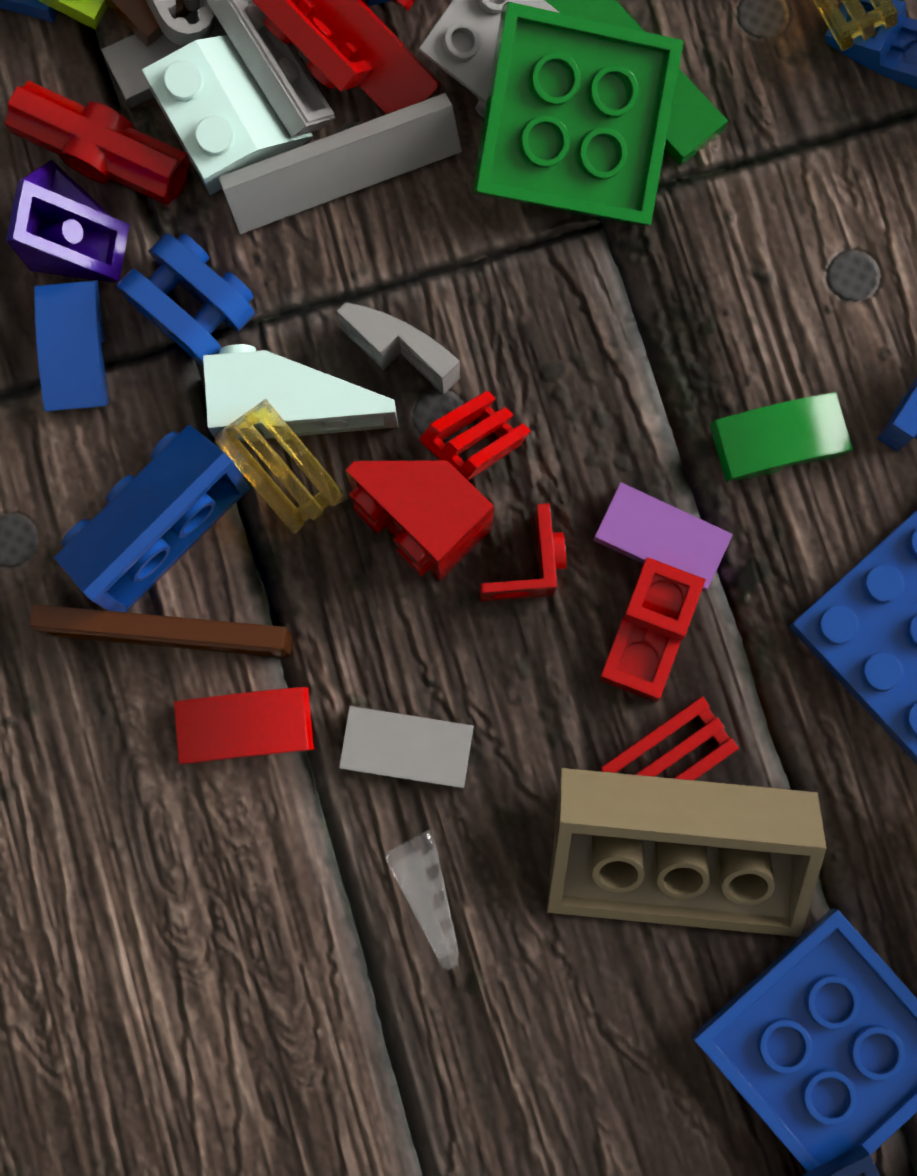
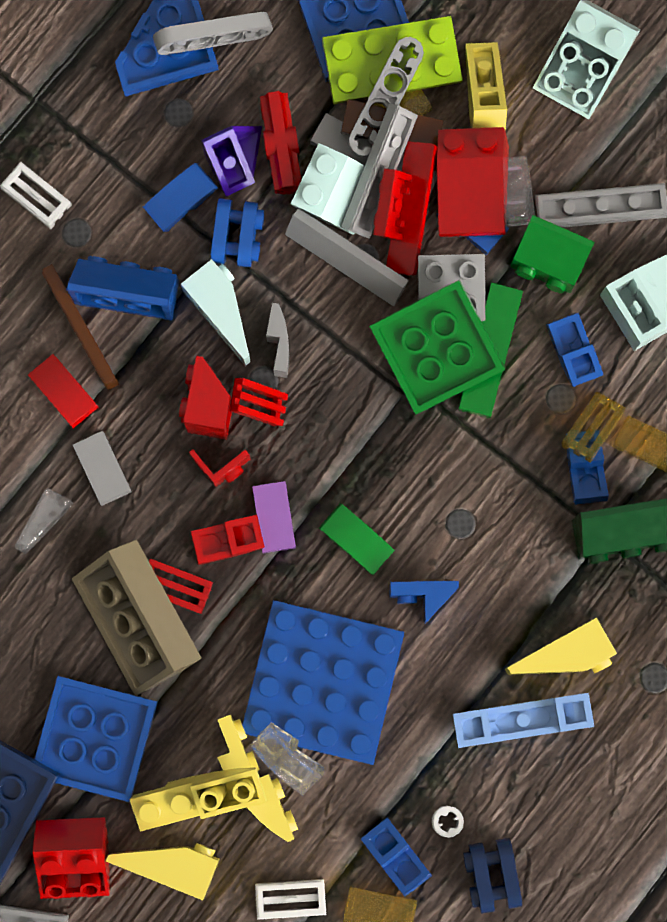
camera: 50 degrees right, 0 degrees up
(309, 506) = (180, 325): clear yellow tile -> none

